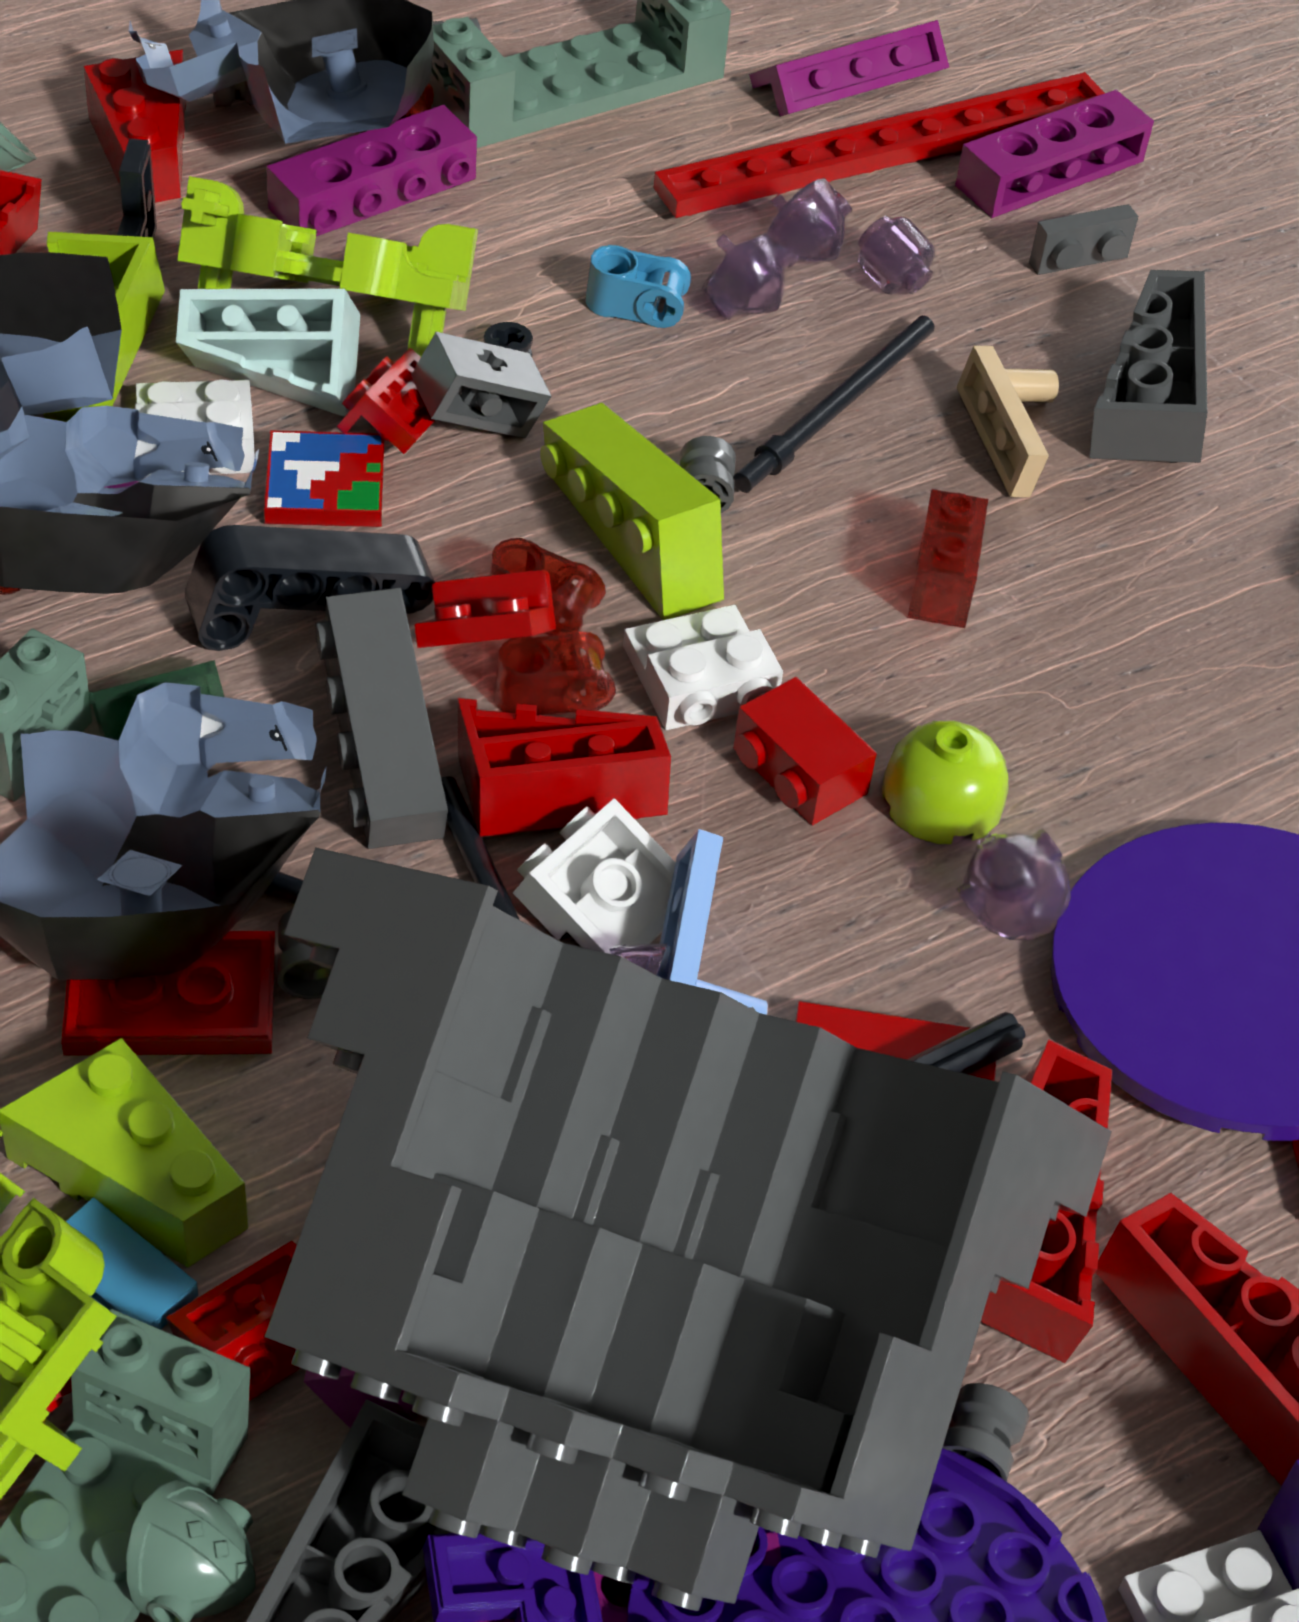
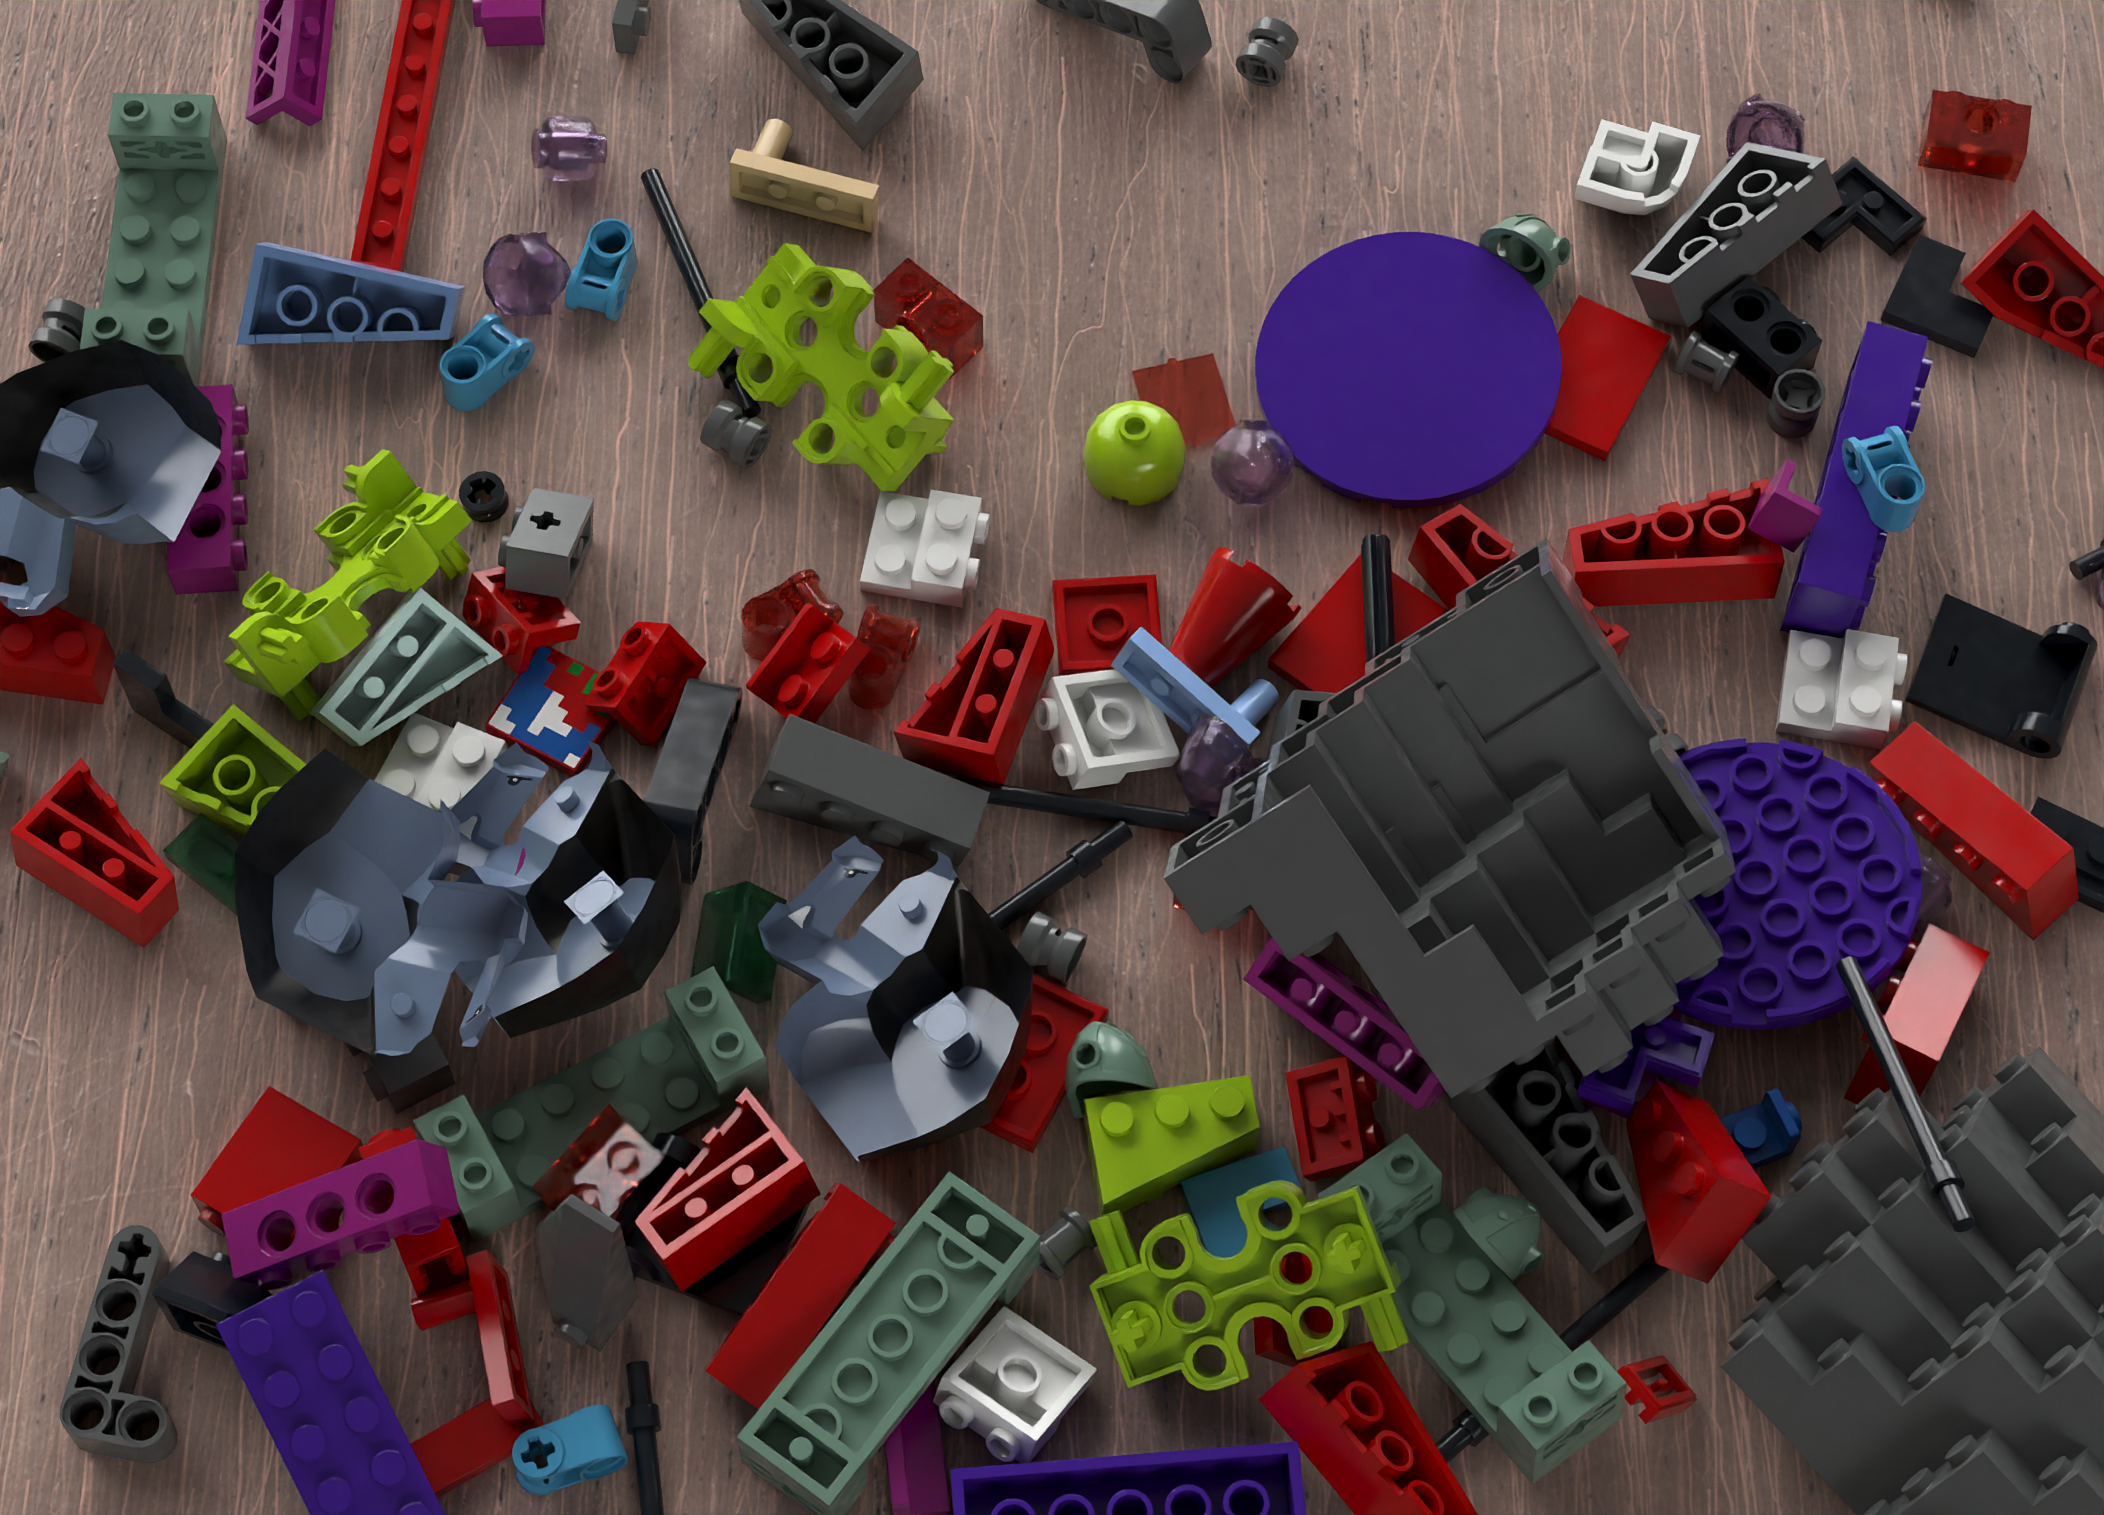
camera: 55 degrees left, 15 degrees up
(187, 1047) = (1105, 1063): none -> sand green helmet
(411, 508) = (645, 680): none -> red bracket
(609, 161) = (332, 299): none -> medium blue wedge
(640, 506) = (743, 501): lime wedge -> none
(758, 850) = (1099, 617): none -> red tile
(802, 328) = (601, 278): none -> dark azure piece
(803, 751) = (1054, 527): red brick -> none
(803, 933) = (1230, 617): none -> red cone
(811, 223) = (491, 192): clear purple helmet -> none
(824, 477) = (768, 329): none -> lime gear
(1053, 799) = (1190, 394): none -> clear red piece

